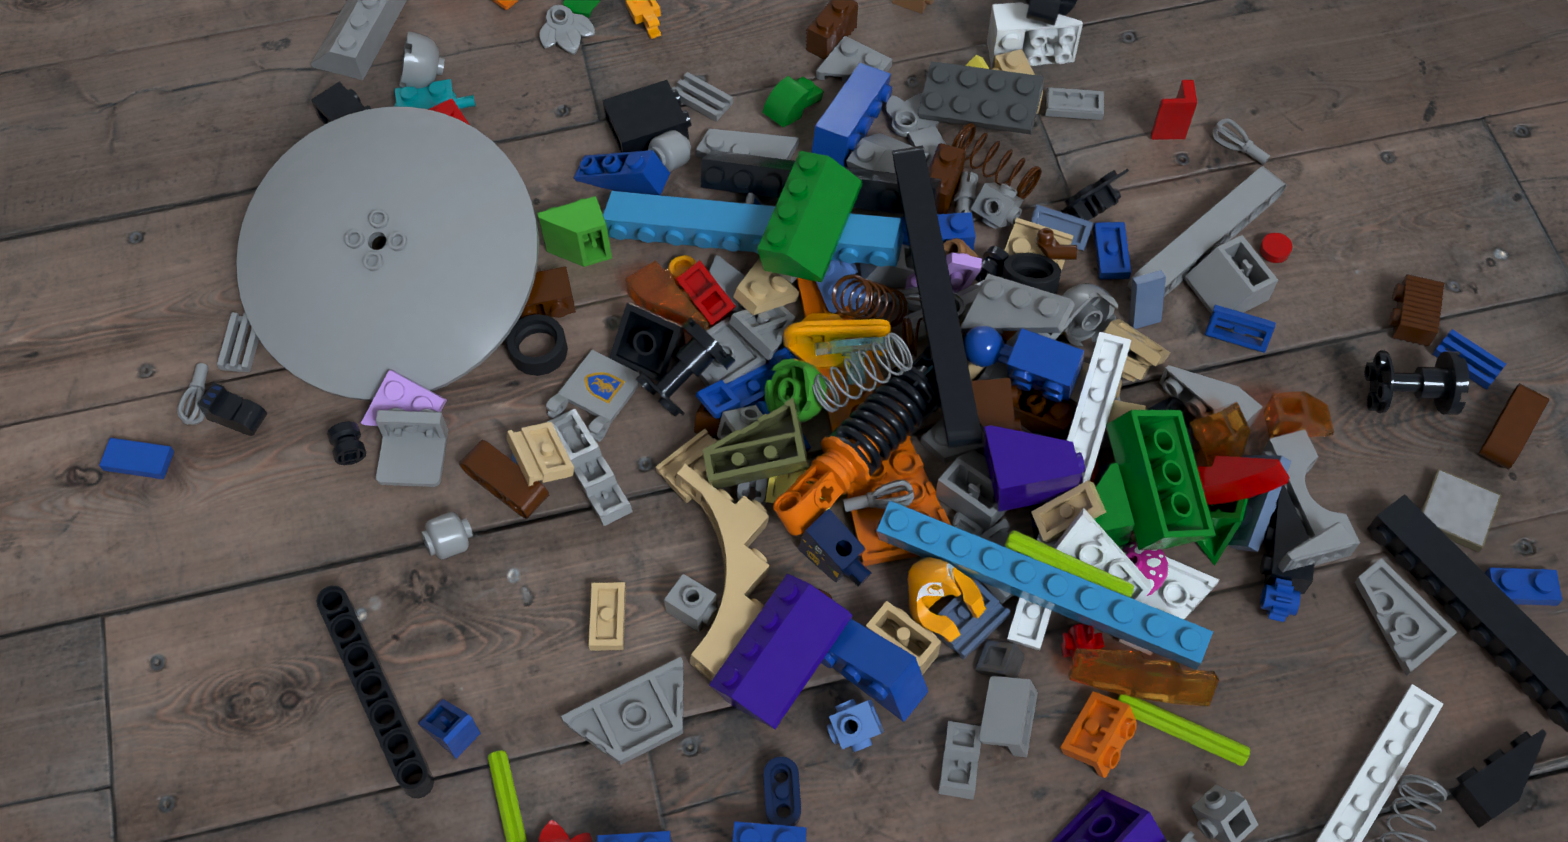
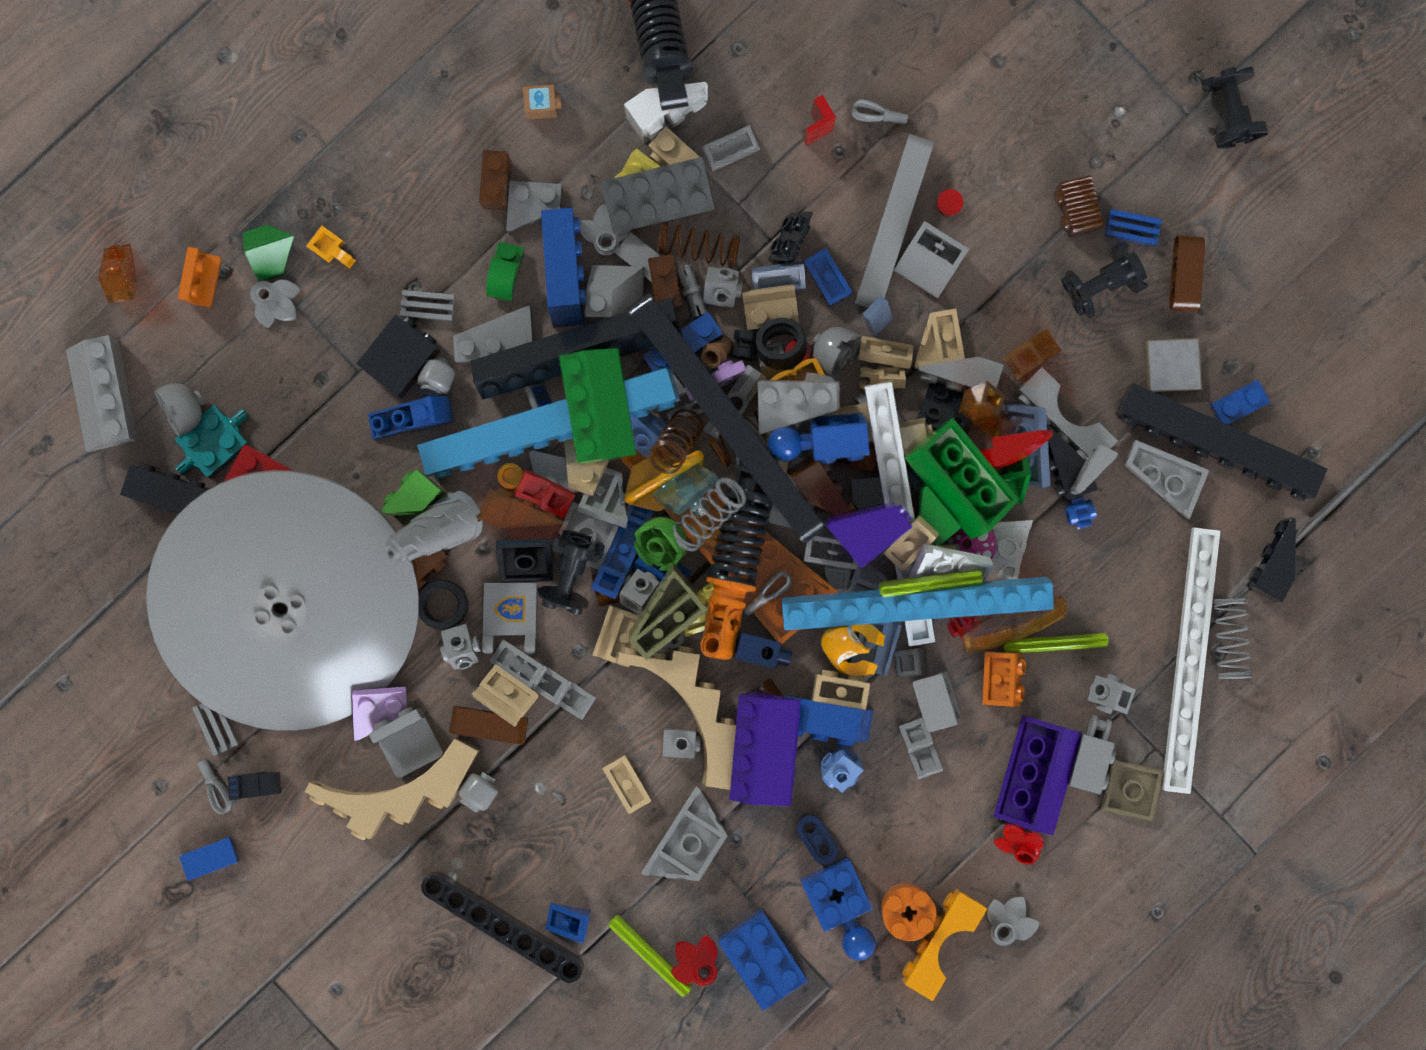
camera: 30 degrees left, 25 degrees up
(346, 443) = (361, 766): black wheel -> none
(367, 505) = (370, 808): none -> tan arch
(526, 387) = (460, 647): none -> light grey brick
(584, 260) = (440, 527): none -> light grey cone
(1052, 249) = (785, 309): reddish brown arm -> none
(1205, 355) = (940, 339): none -> tan wing
(1242, 324) = (956, 297): blue tile -> none

